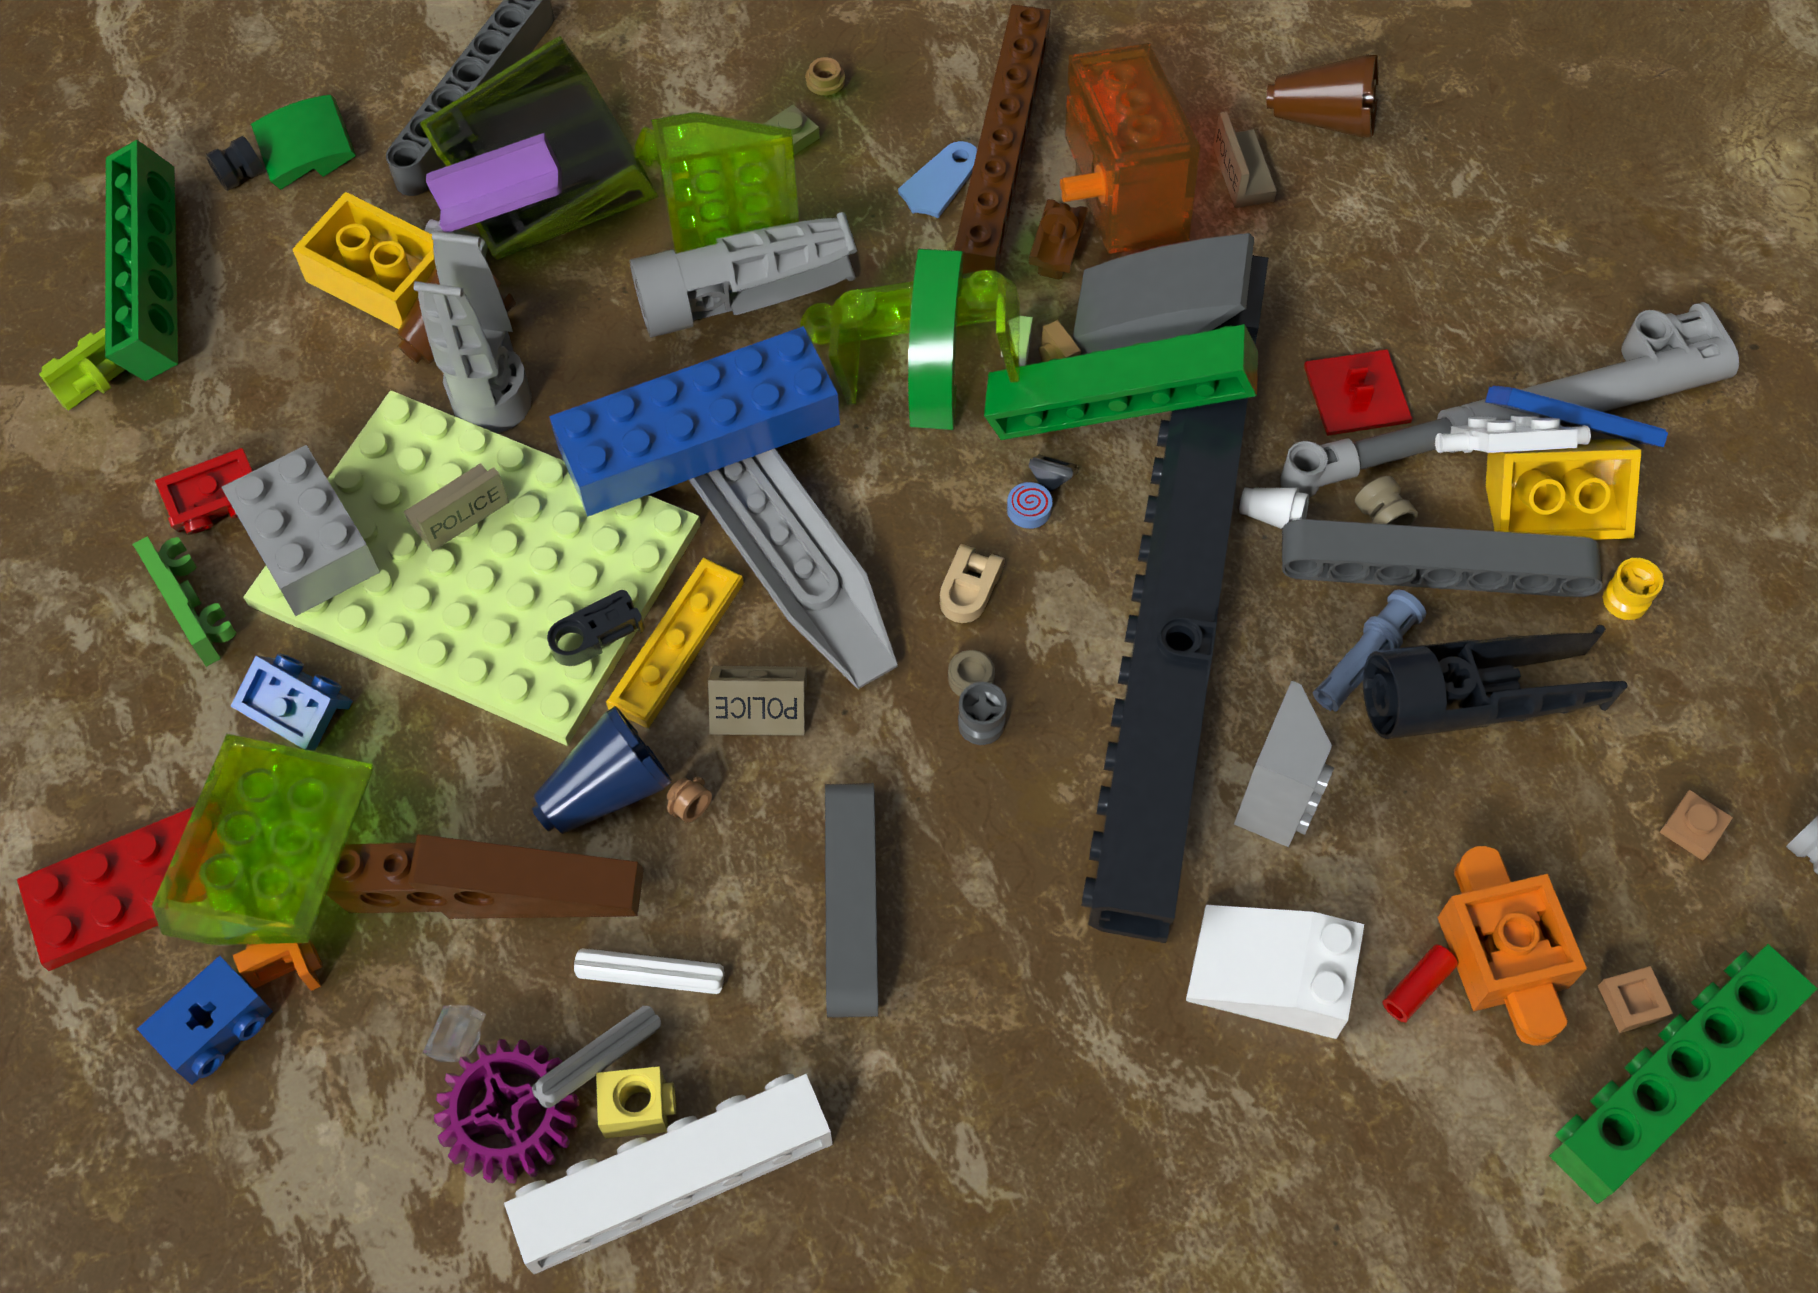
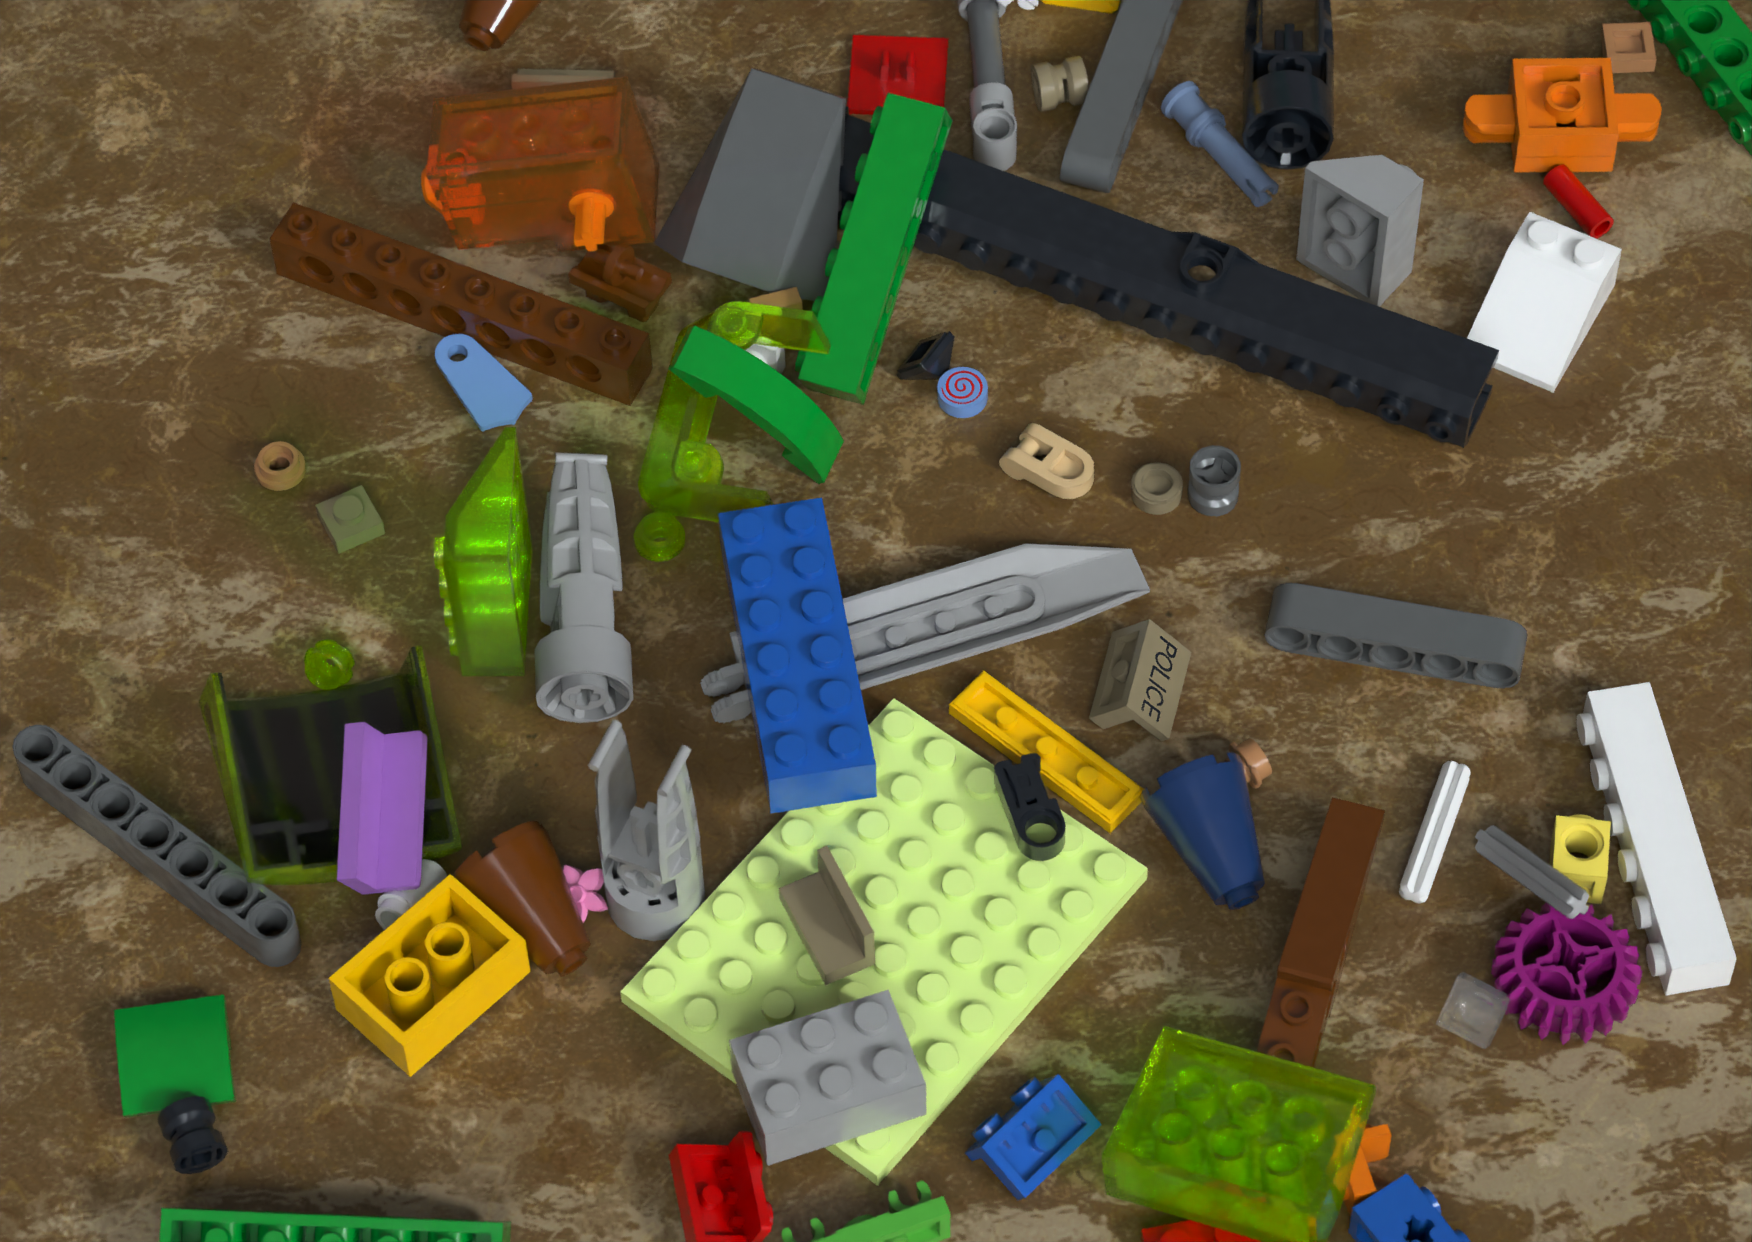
camera: 75 degrees left, 5 degrees down
(1274, 505) = (1038, 162): white cone -> none

